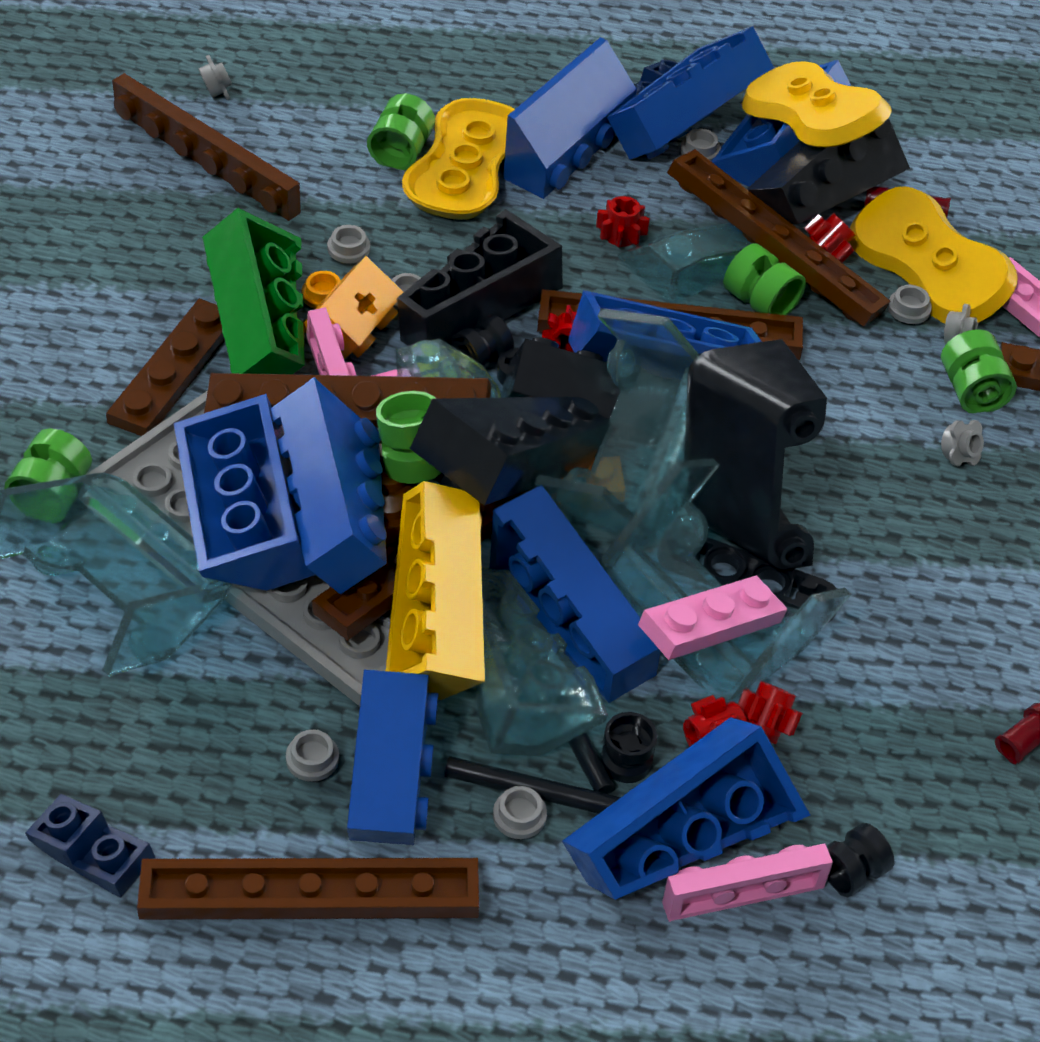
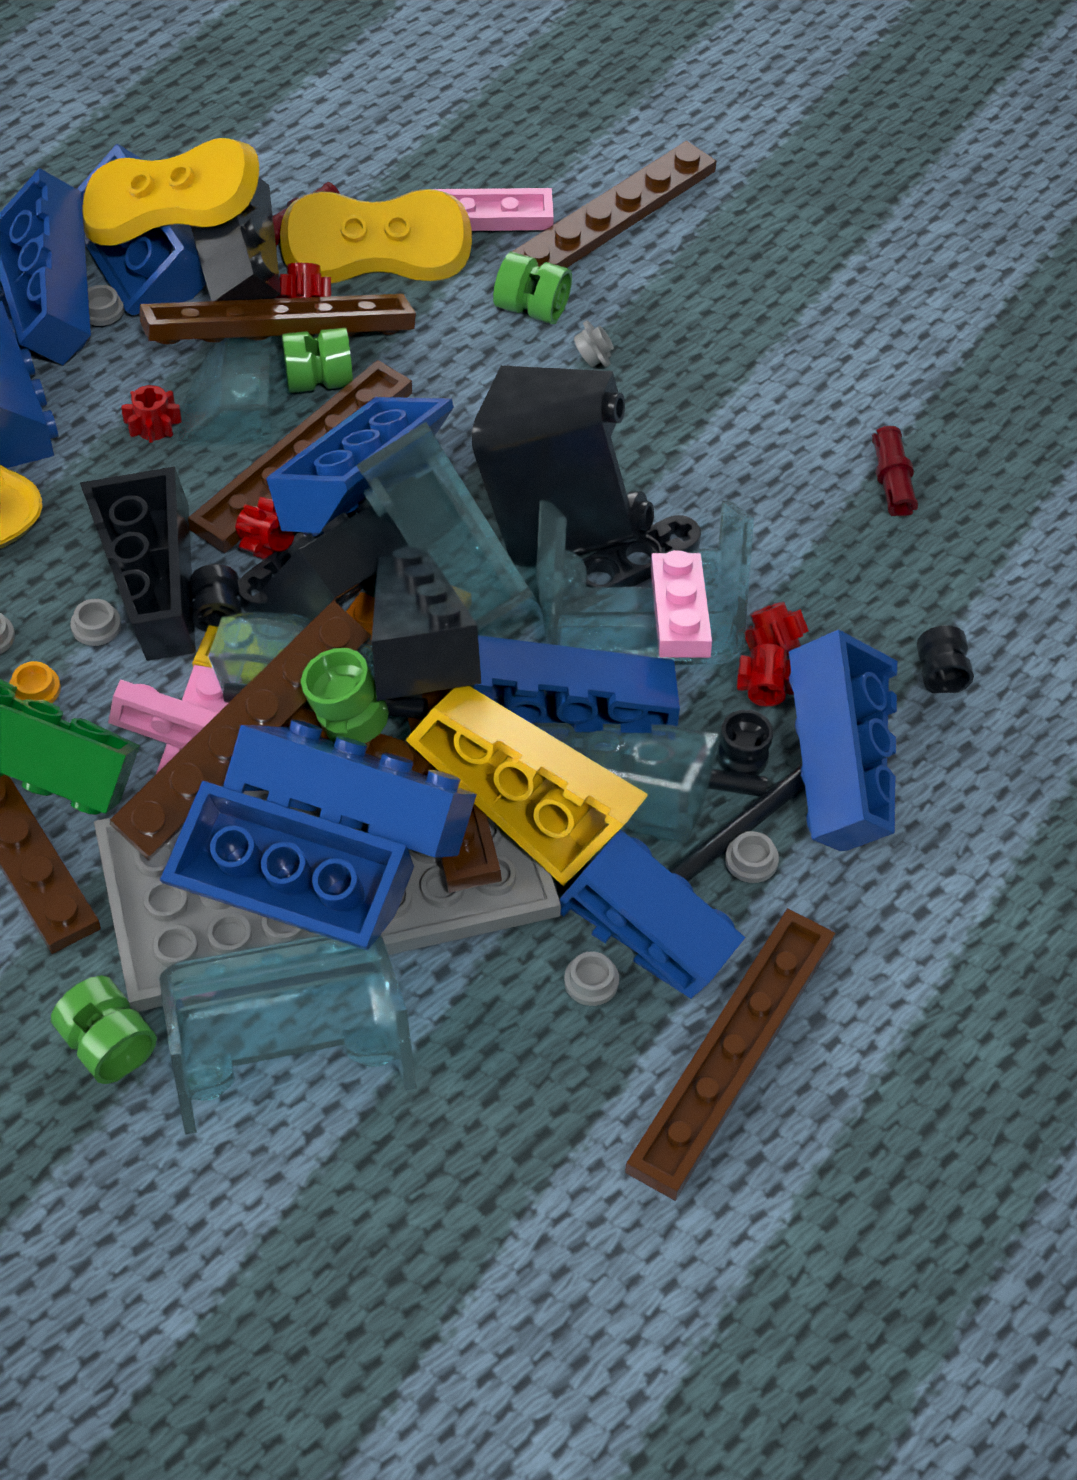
camera: 55 degrees left, 5 degrees up
(88, 845) = (570, 1205): dark blue slope -> none
(360, 304) = (87, 664): light orange brick -> none
(746, 881) = (919, 739): bright pink plate -> none
(910, 304) = (416, 284): light grey plate -> none
(958, 323) = (473, 270): light grey plate -> none

